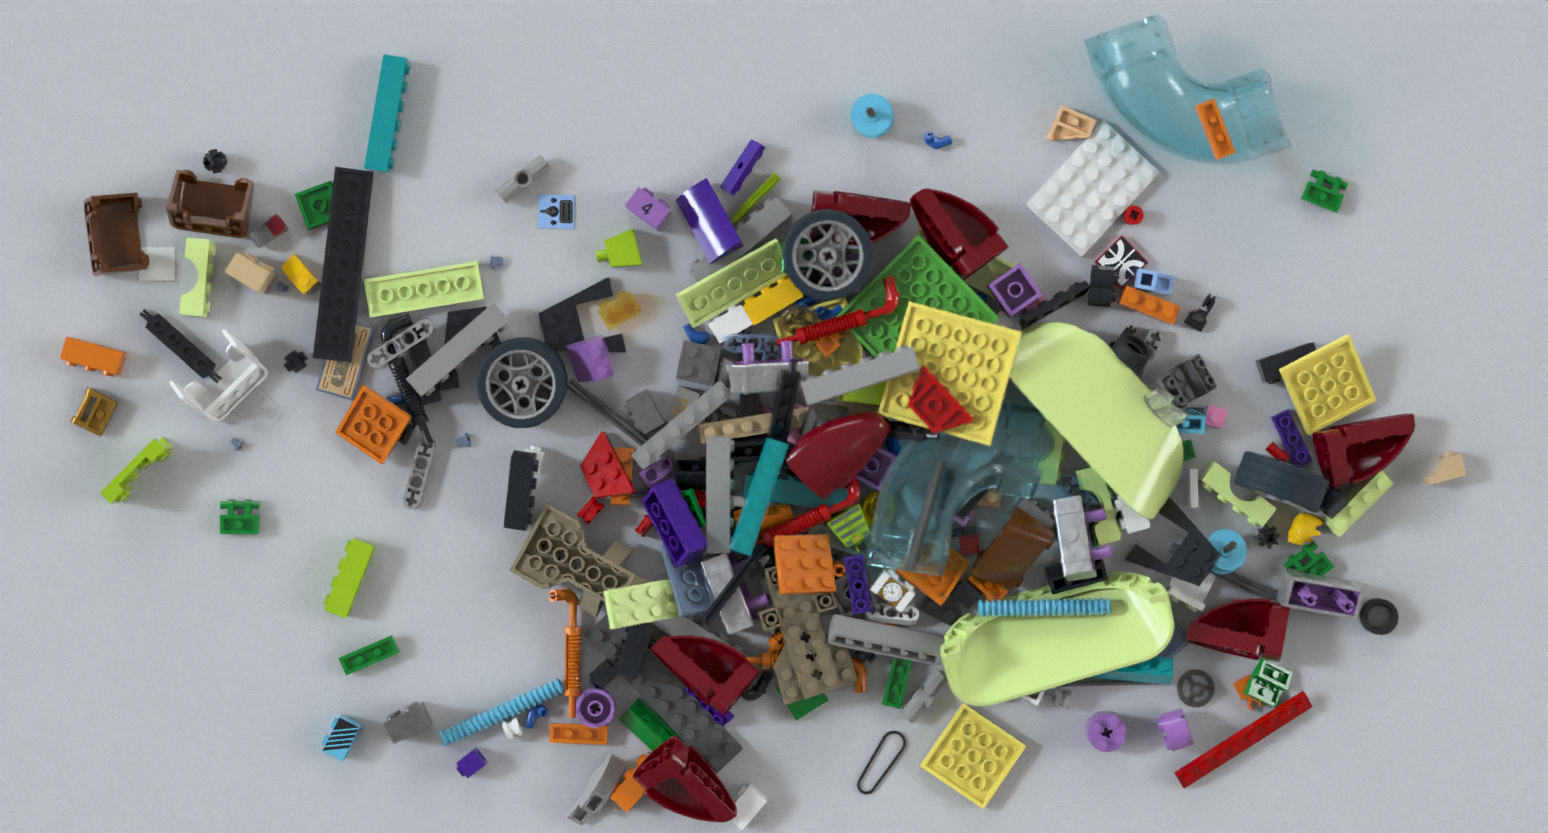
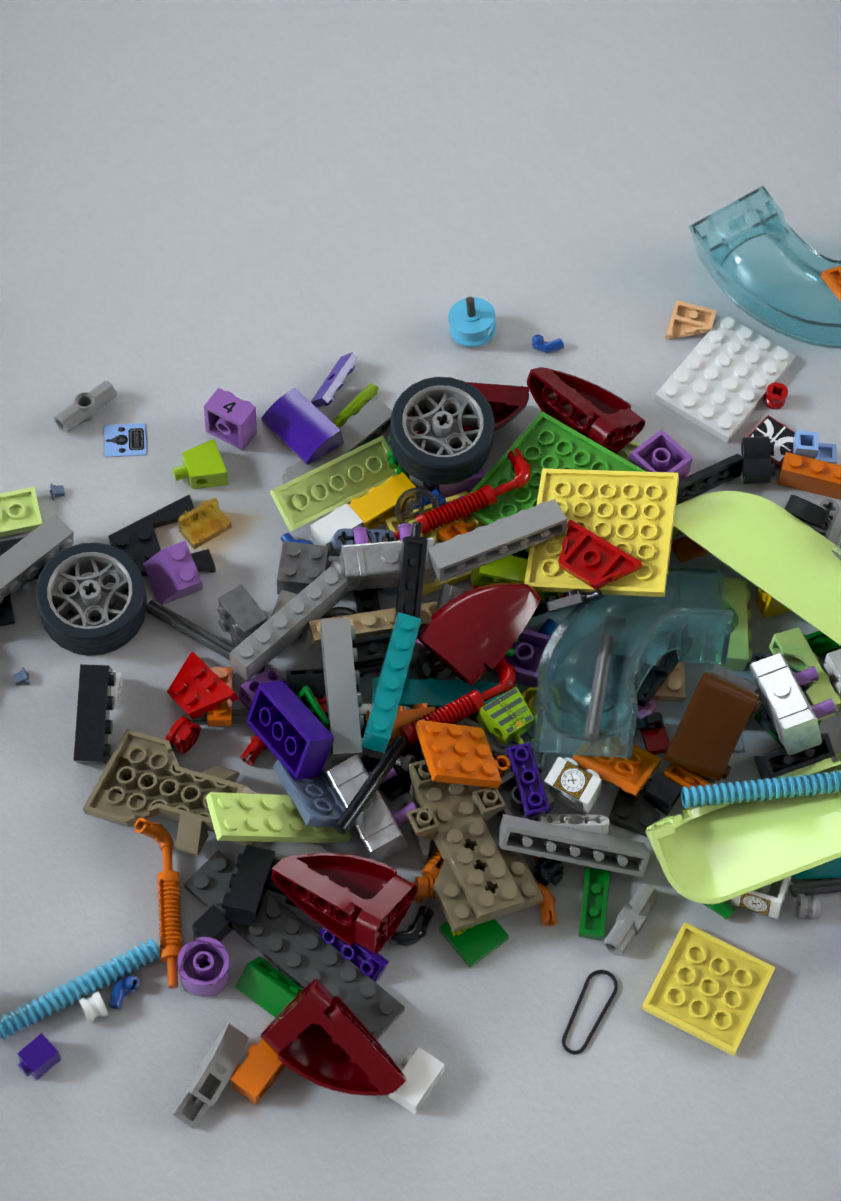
camera: 10 degrees left, 30 degrees down
(578, 734) = (182, 1007): orange plate -> none

